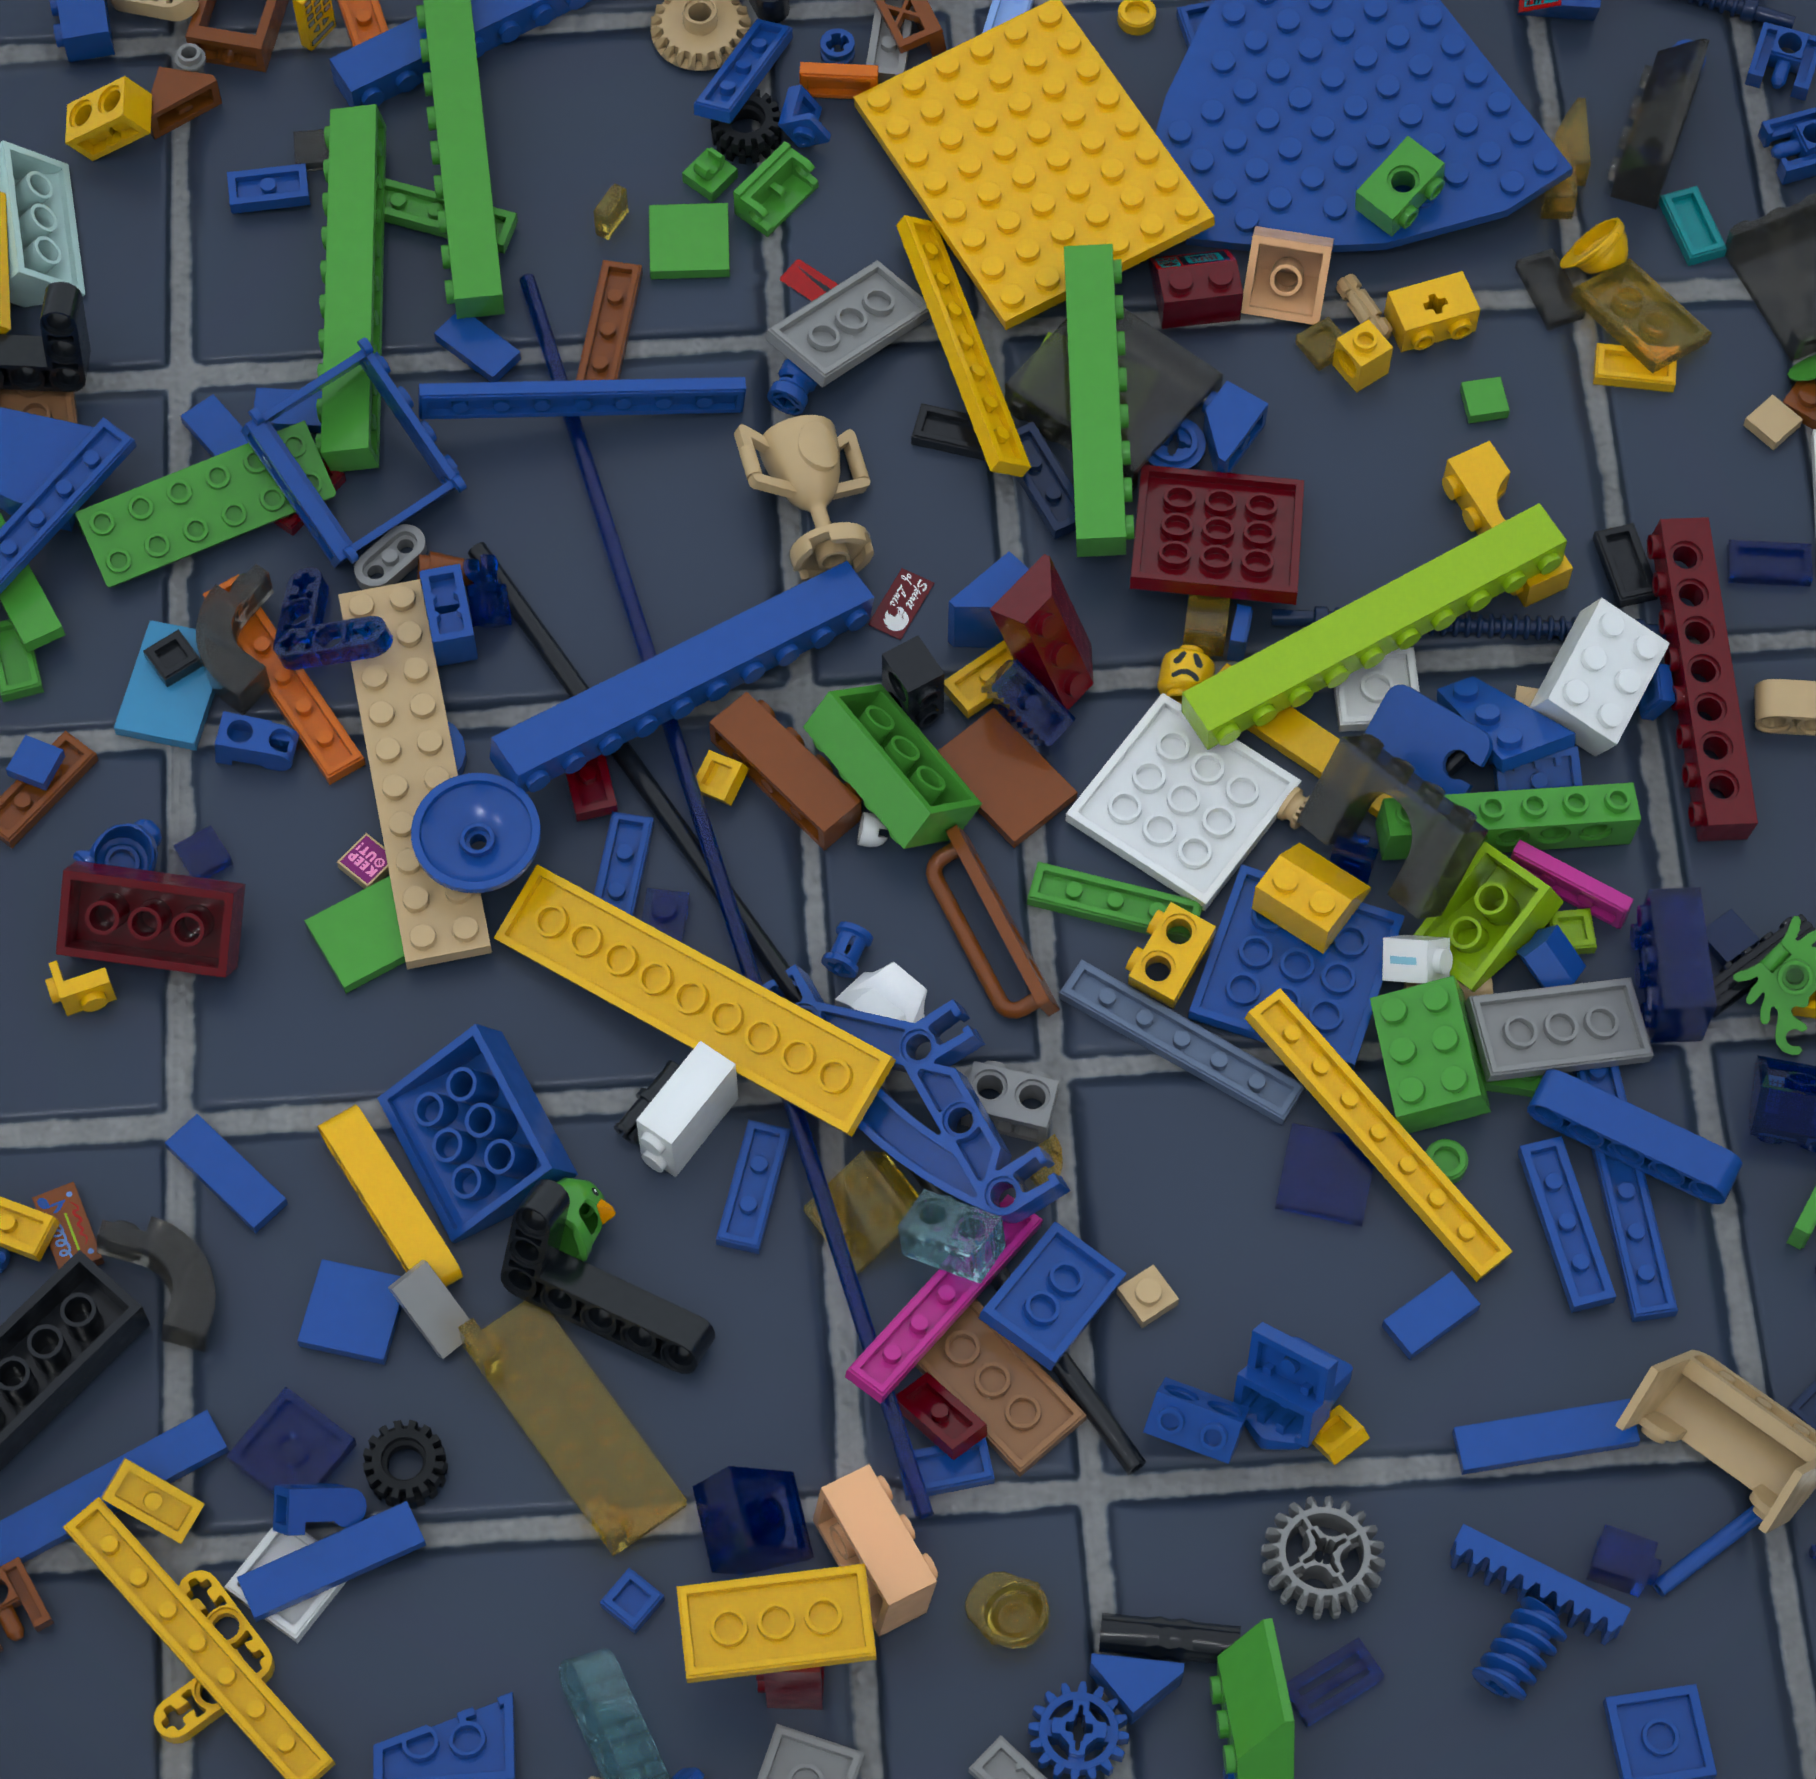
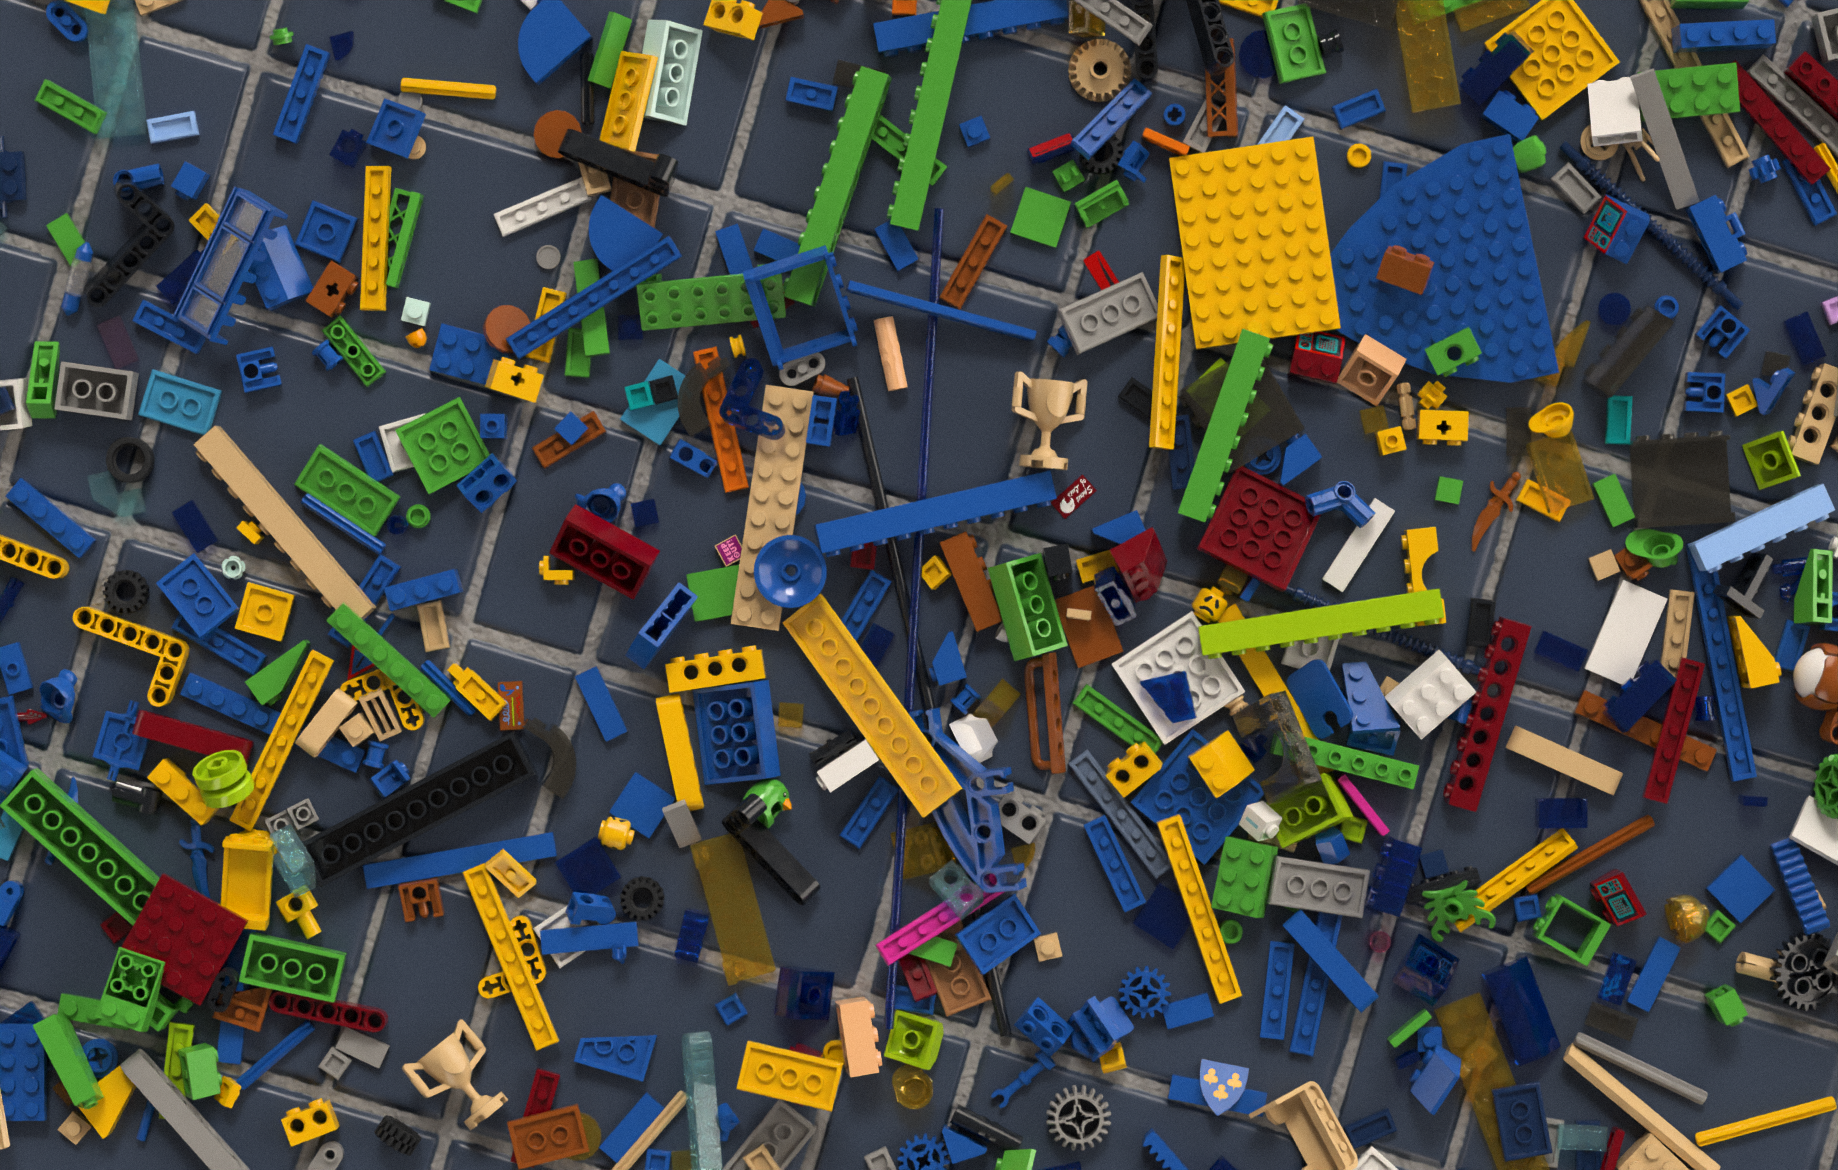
camera: 20 degrees right, 25 degrees up
(88, 595) = (629, 327): none -> clear blue plate
(133, 675) = (639, 395): none -> teal plate
(273, 560) = (737, 346): none -> yellow bush
(285, 1001) = (661, 626): none -> blue brick
(321, 1371) = (615, 833): none -> yellow head
(378, 1042) = (680, 682): none -> yellow brick
(396, 1567) = (619, 954): none -> blue hand
(515, 1491) = (692, 935): none -> clear blue brick
(525, 493) = (890, 353): none -> light nougat axle
(541, 162) = (974, 131): none -> blue plate
(561, 1079) = (790, 715): none -> clear yellow tile
(672, 149) = (1051, 149): none -> slope
(796, 903) = (947, 662): none -> blue slope
(901, 938) = (997, 702): none -> clear yellow slope
(954, 1362) = (937, 951): none -> bright green tile
(979, 1527) = (914, 1040): none -> lime slope
(980, 751) = (1078, 614): none -> tan tile
(1185, 819) = (1172, 695): none -> clear blue wing
(1203, 1118) = (1114, 863): none -> blue plate
(1222, 1485) = (1025, 1077): none -> blue piece
(1276, 99) = (1405, 269): none -> dark orange brick
(1326, 457) = (1351, 506): none -> blue piece
(1361, 1292) = (1128, 990): none -> blue gear
(1381, 518) = (1357, 547): none -> white tile
(1395, 272) = (1432, 395): none -> yellow gear
(1545, 1411) = (1222, 1084): none -> sticker
(1565, 401) = (1493, 508): none -> dark orange piece
(1610, 84) = (1614, 308): none -> clear blue piece
(1695, 1101) = (1384, 936): none -> clear pink bush
(1742, 331) = (1613, 500): none -> bright green tile

